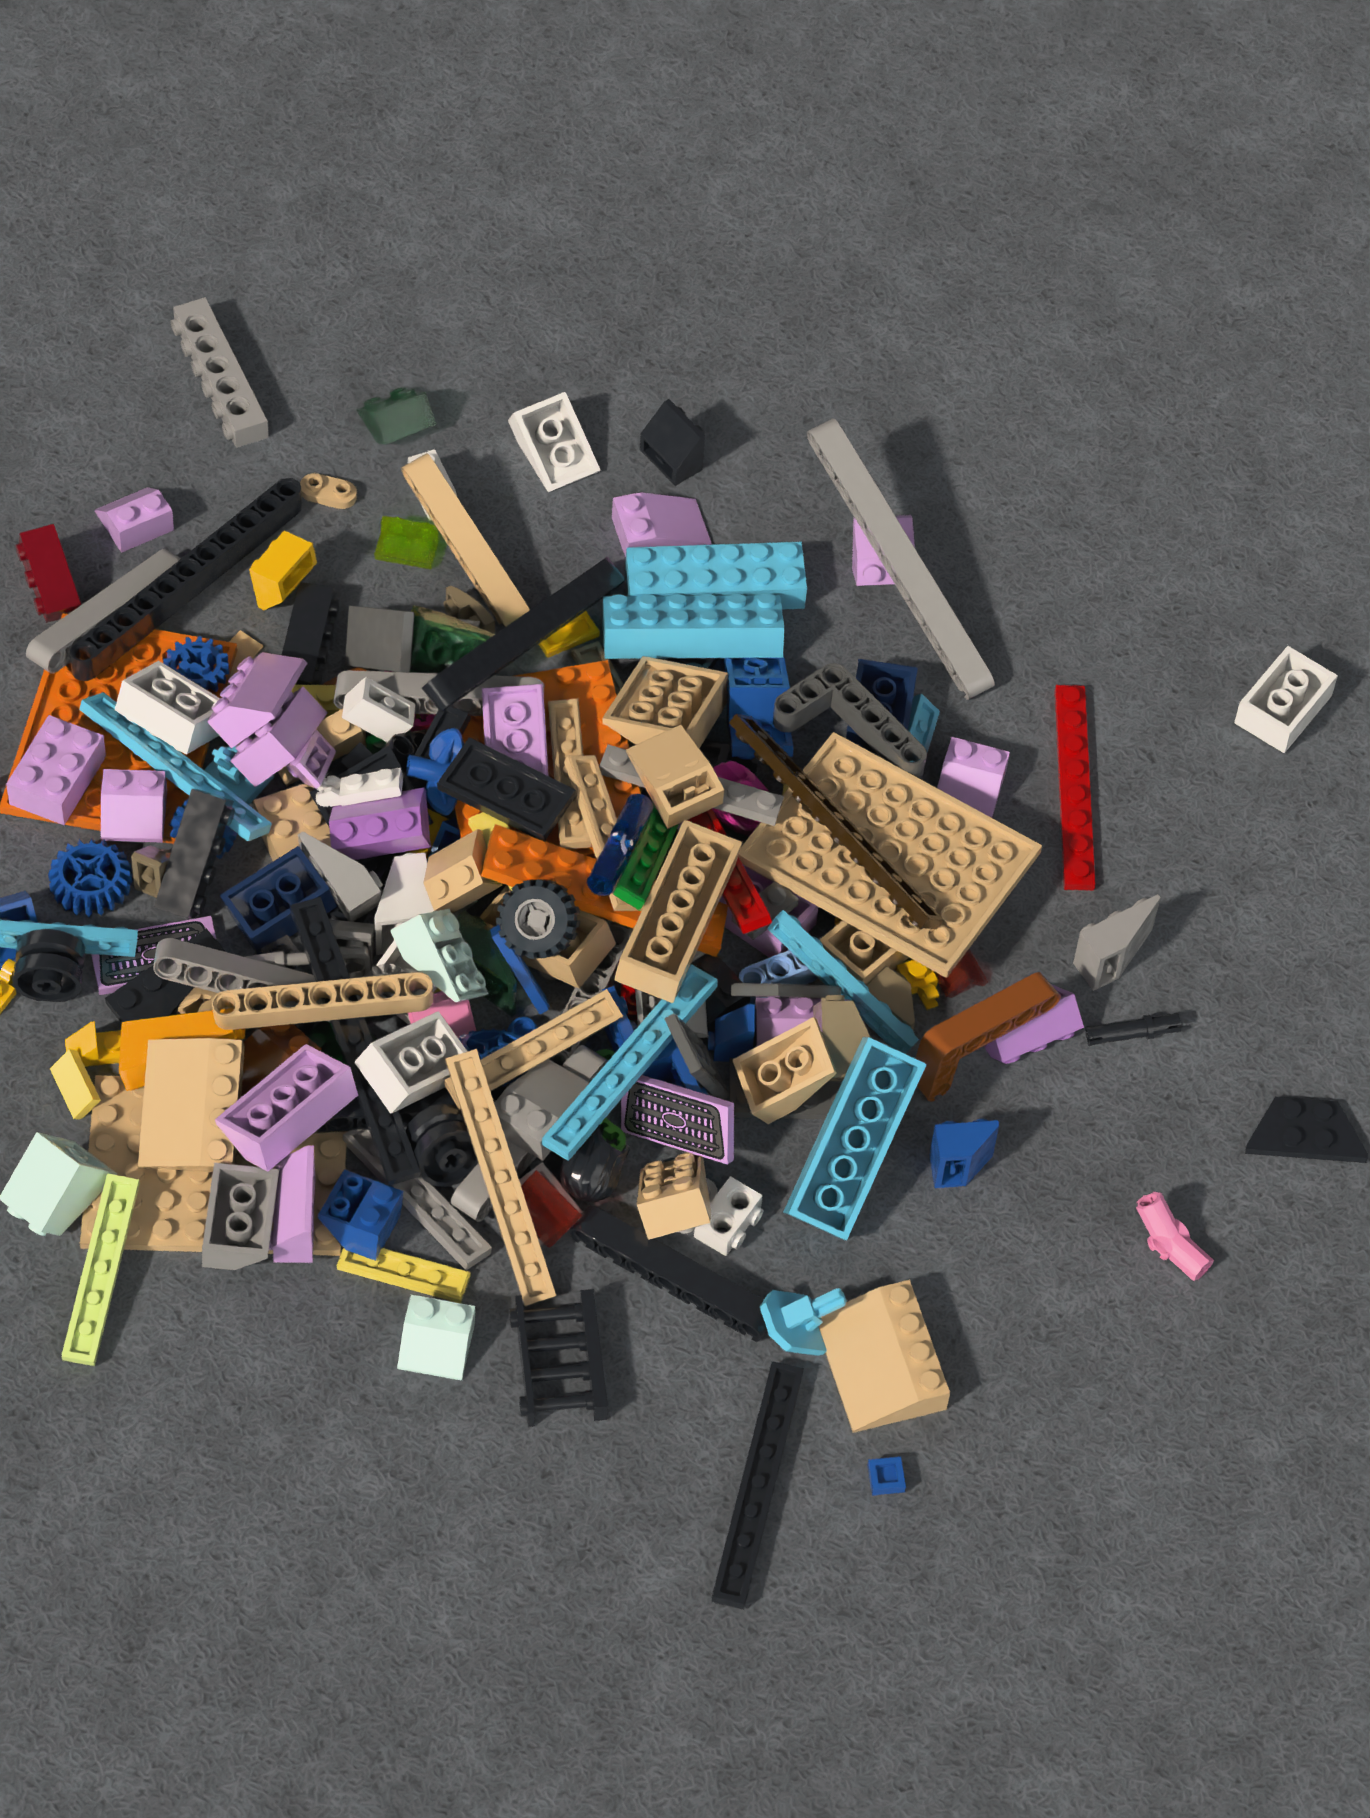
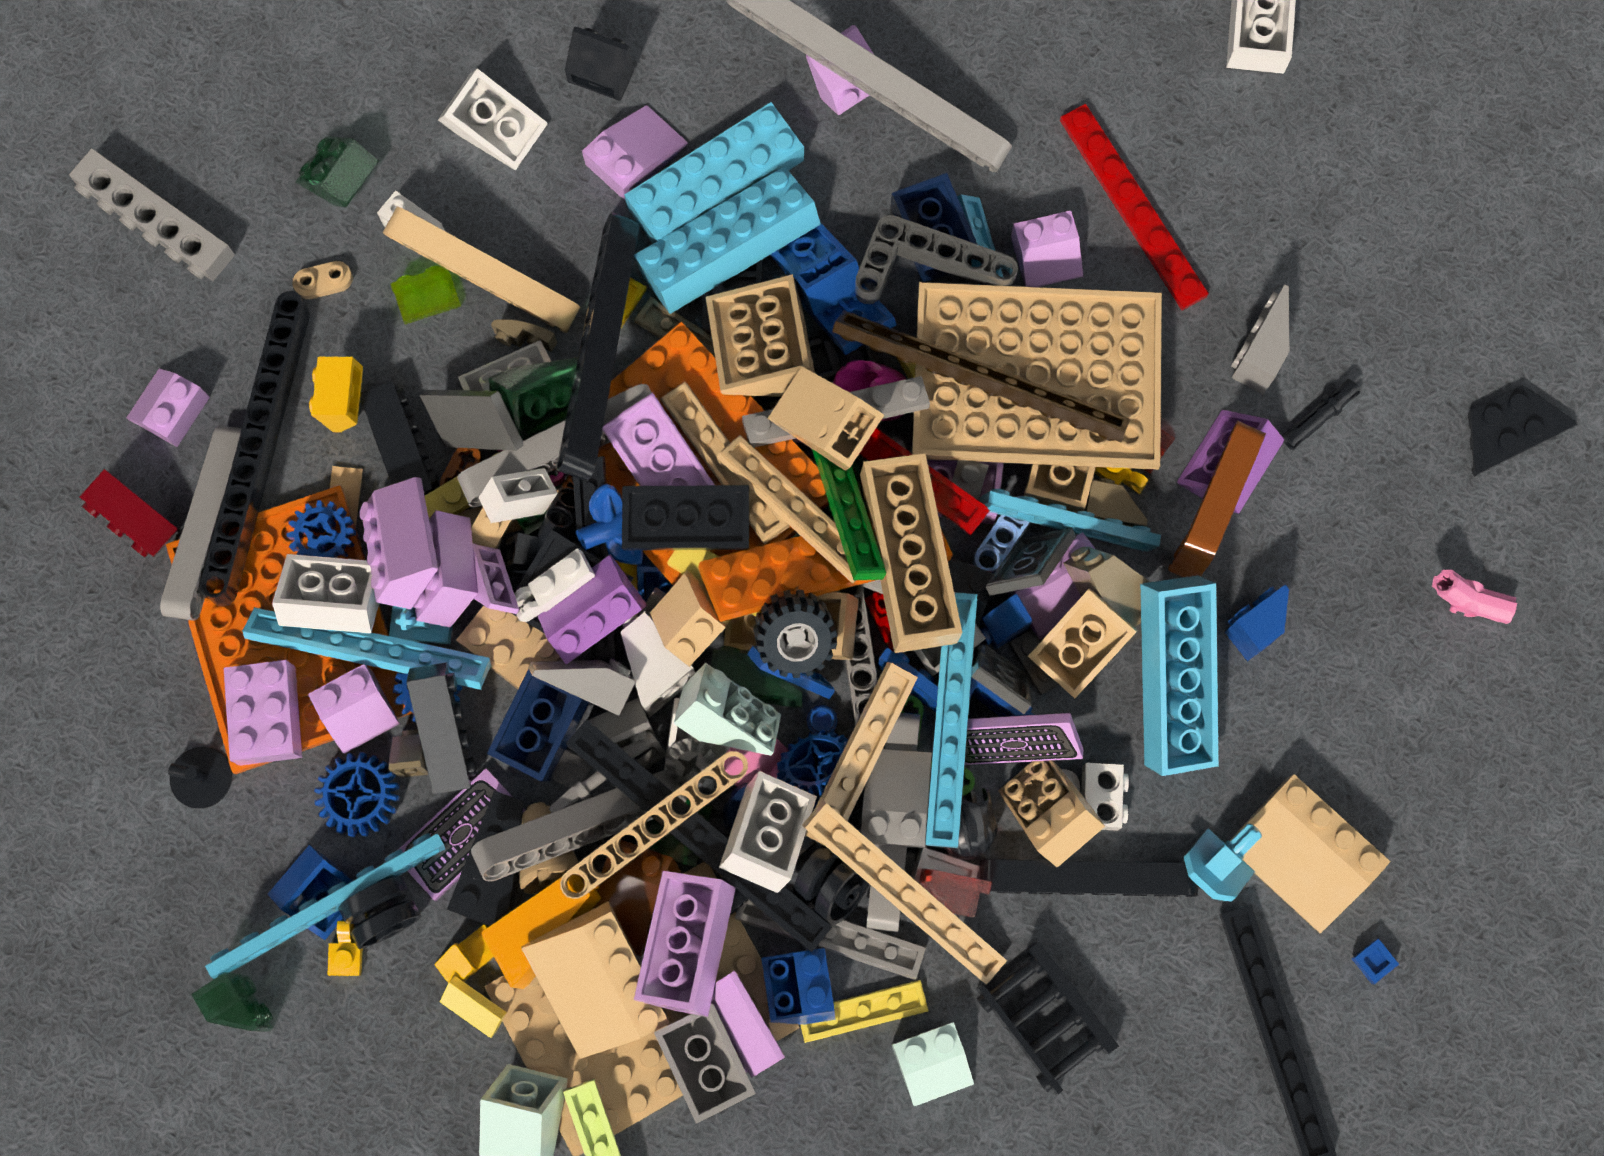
camera: 25 degrees left, 20 degrees up
(619, 844) = (825, 533): clear blue piece -> none

